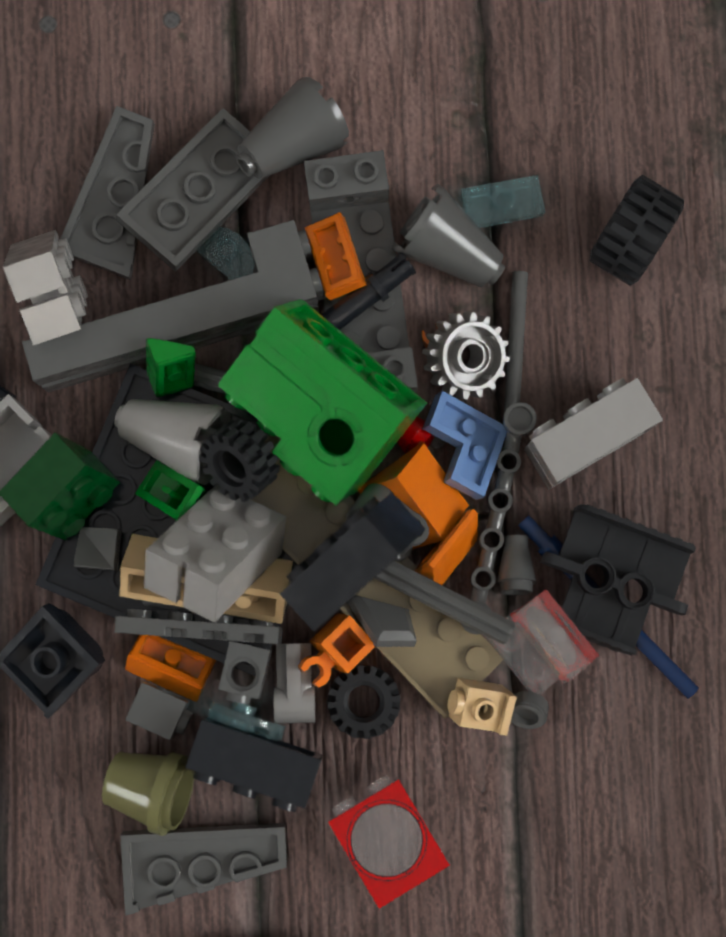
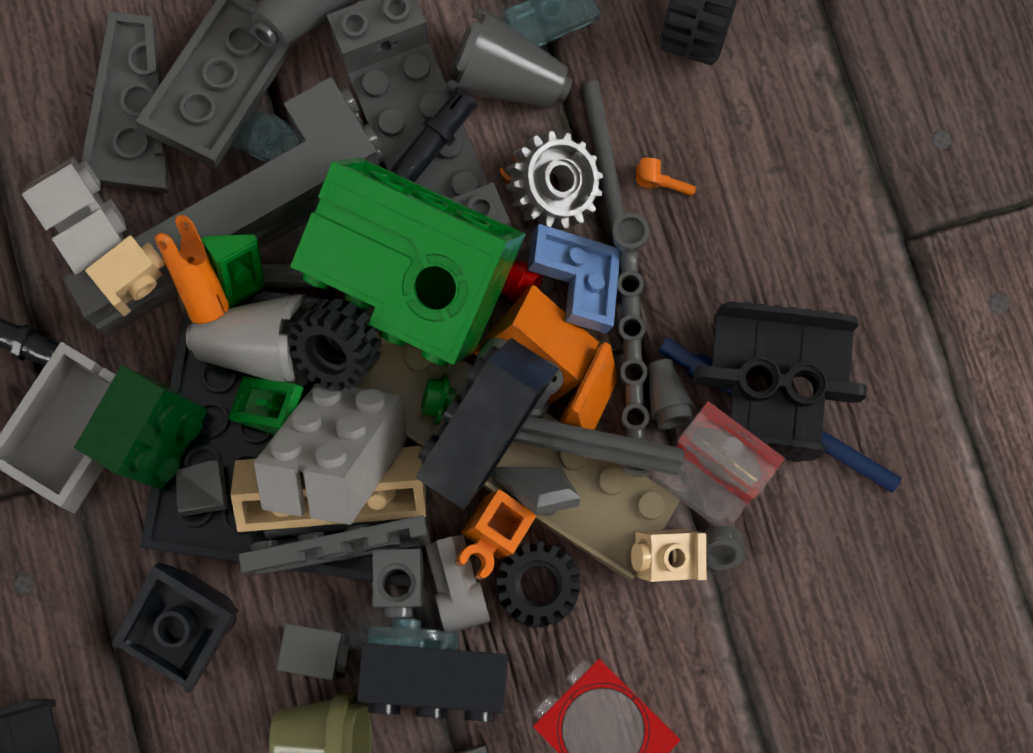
camera: 15 degrees left, 5 degrees down
(77, 354) = (127, 273): none -> tan brick
(134, 367) = (193, 273): none -> orange piece
(170, 665) = (312, 600): orange slope -> none
(316, 525) = (437, 398): none -> green plate
(335, 256) = (386, 109): orange plate -> none
(550, 368) = (649, 177): none -> orange hand
(591, 431) = (712, 227): light grey piece -> none

